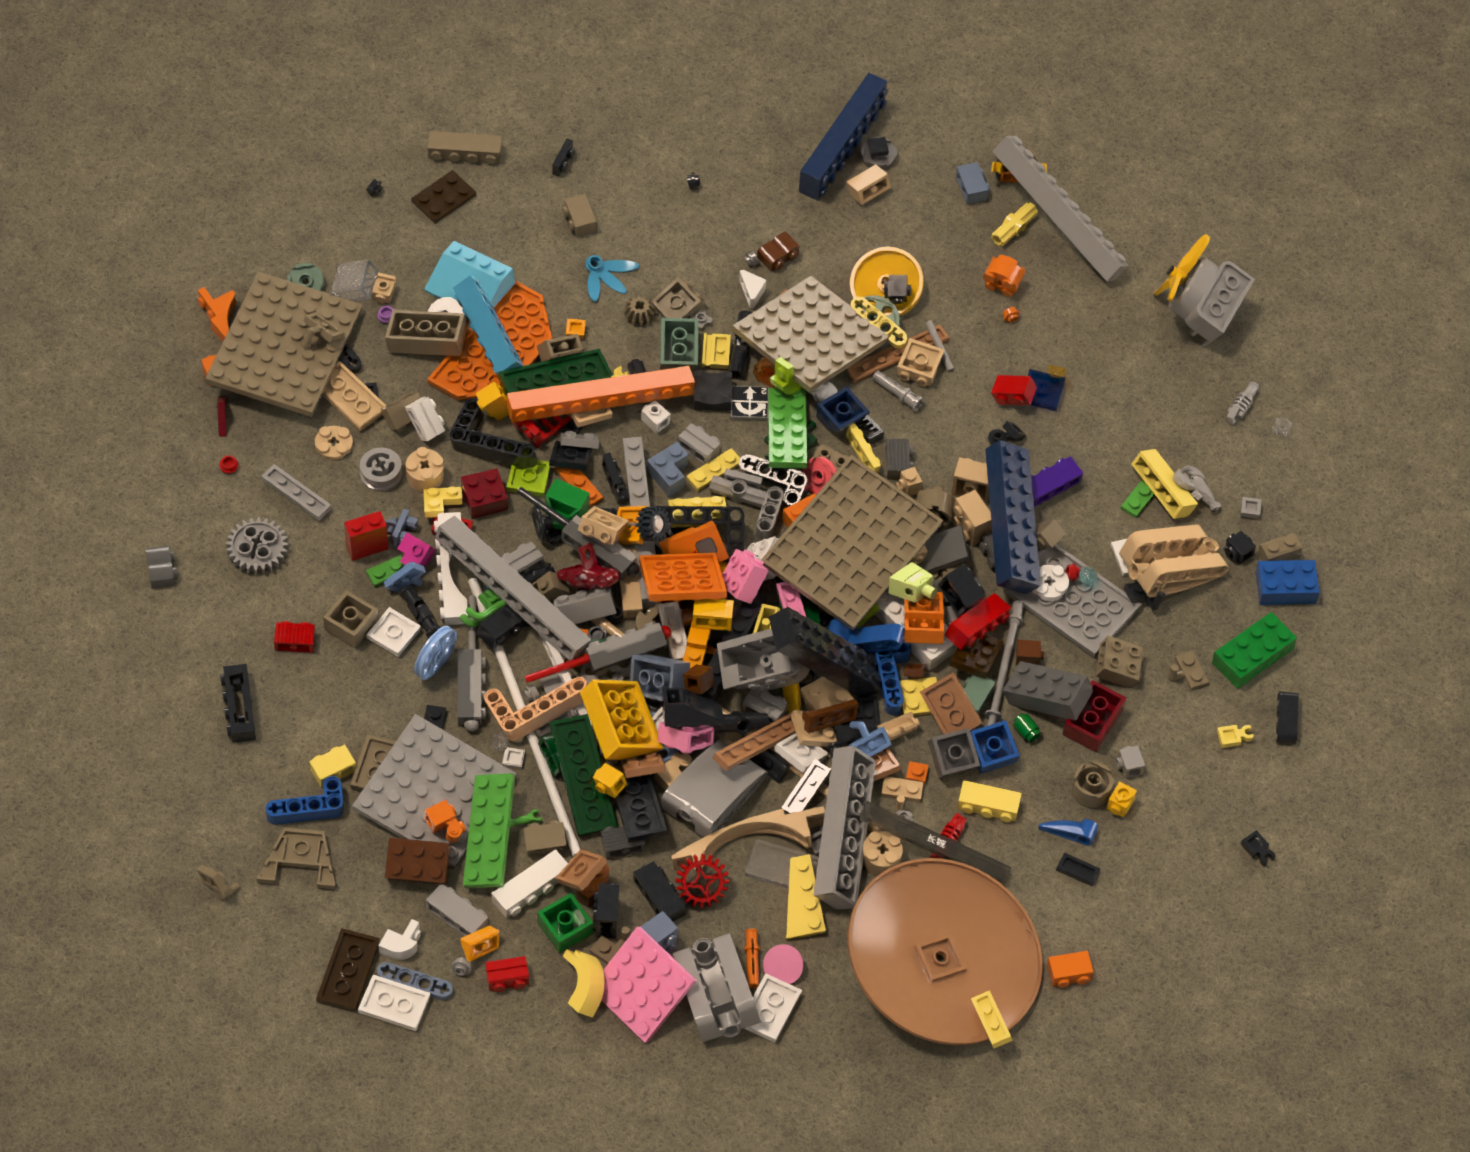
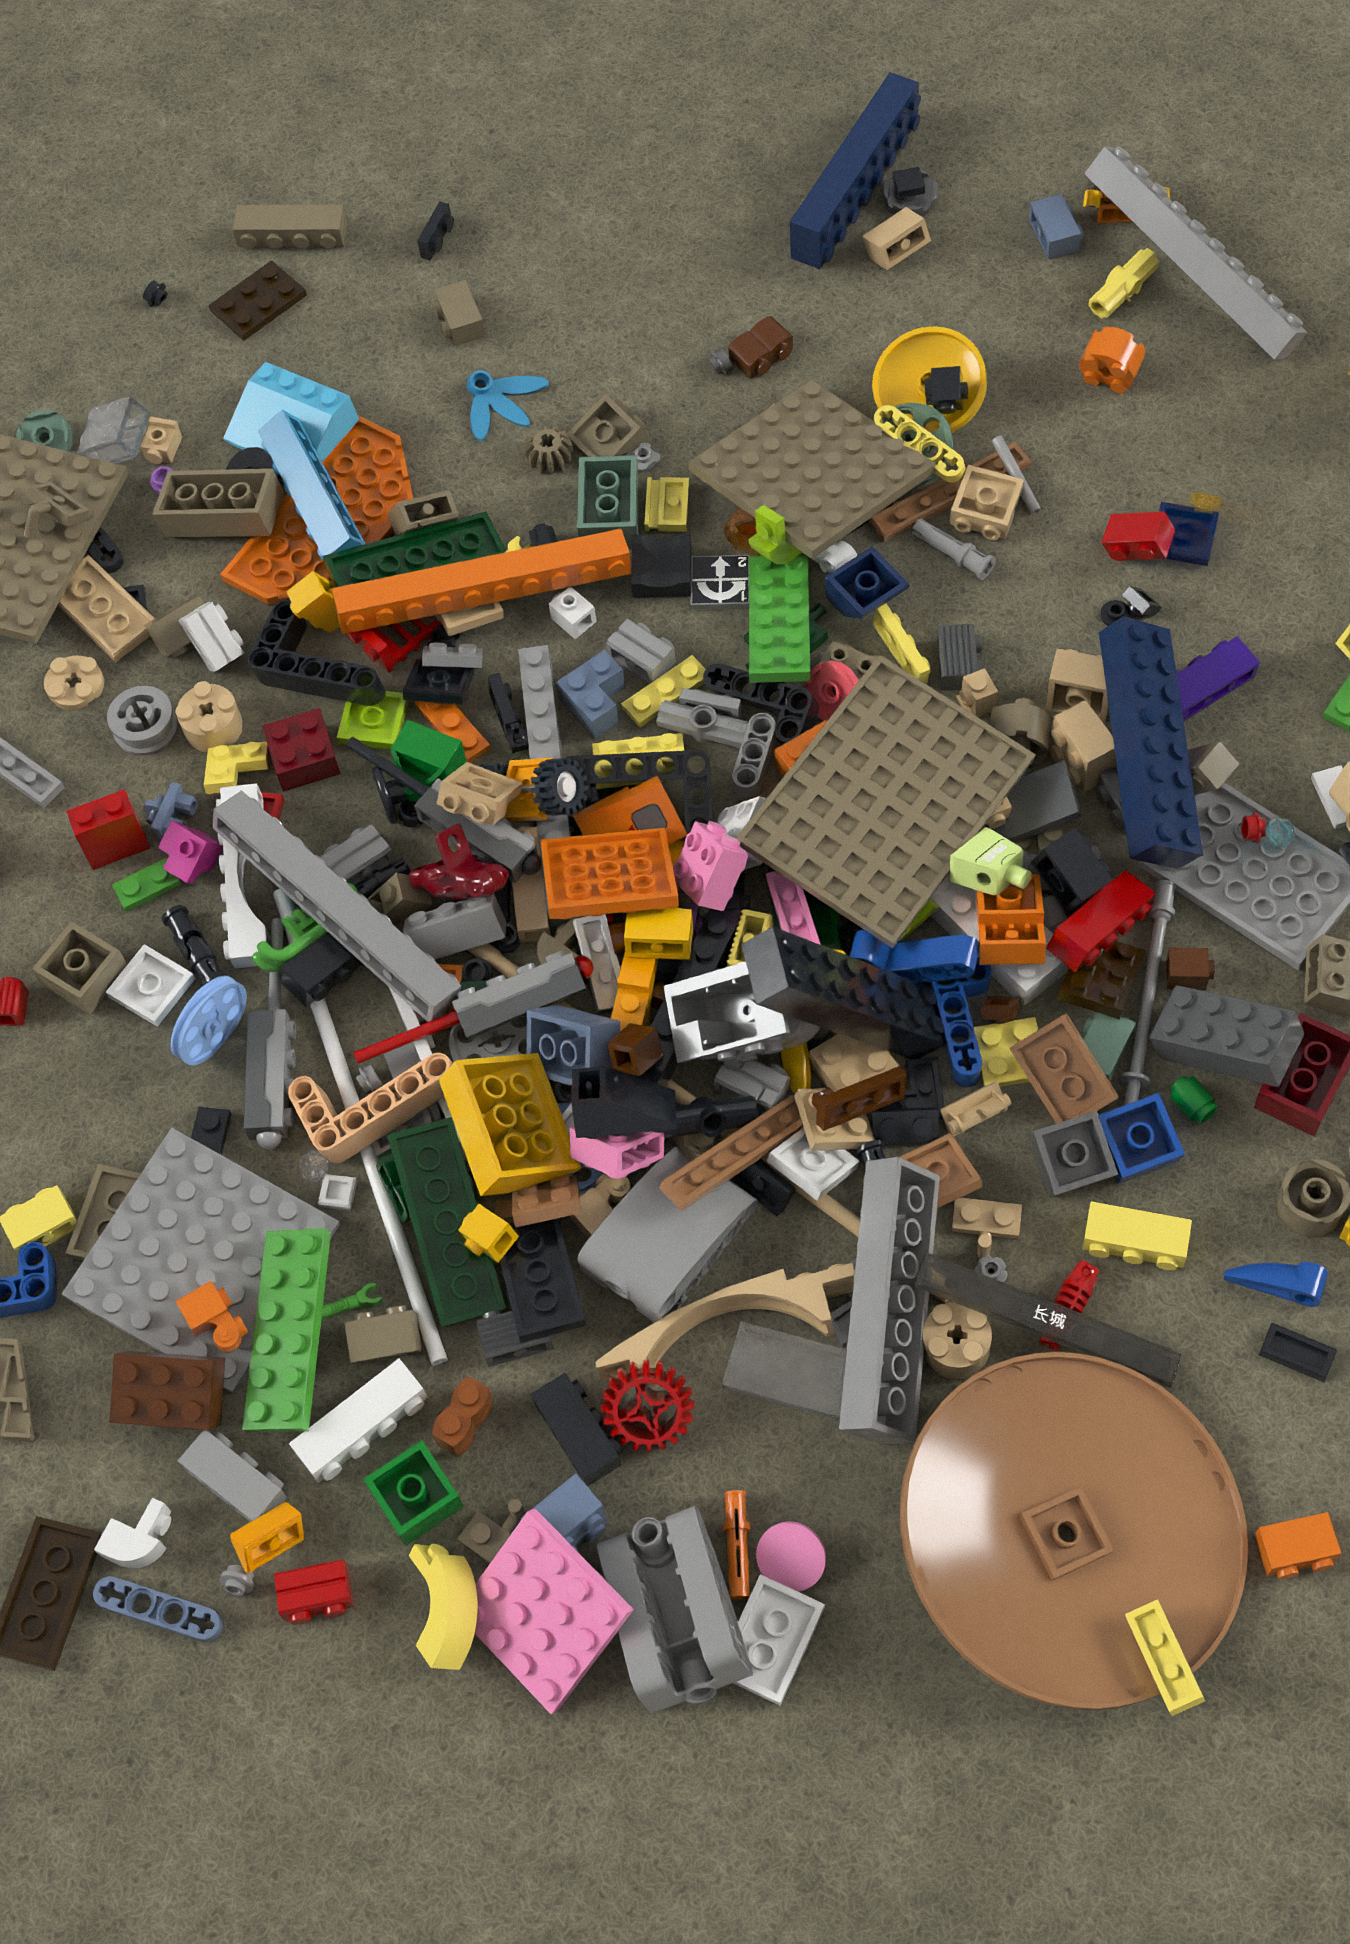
camera: 10 degrees right, 5 degrees up
(394, 1003) = (120, 1653): white plate -> none
(409, 574) = (169, 892): medium blue plate -> none
(576, 326) = (451, 480): light orange plate -> none
(581, 870) = (439, 1399): medium nougat plate -> none
(606, 910) = (484, 1468): black brick -> none
(693, 181) = (631, 252): black plate -> none
(739, 355) = (702, 507): black piece -> none
(752, 286) = (722, 402): white slope -> none
(804, 908) = (824, 1453): light yellow wing -> none
(807, 787) = (824, 1227): plate -> none
(870, 742) = (928, 1142): medium blue plate -> none
(874, 437) = (918, 625): black slope -> none
(917, 772) = (1010, 1186): orange plate -> none
(1011, 314) = (1126, 419): orange plate -> none
(1058, 588) = (1232, 854): white plate -> none

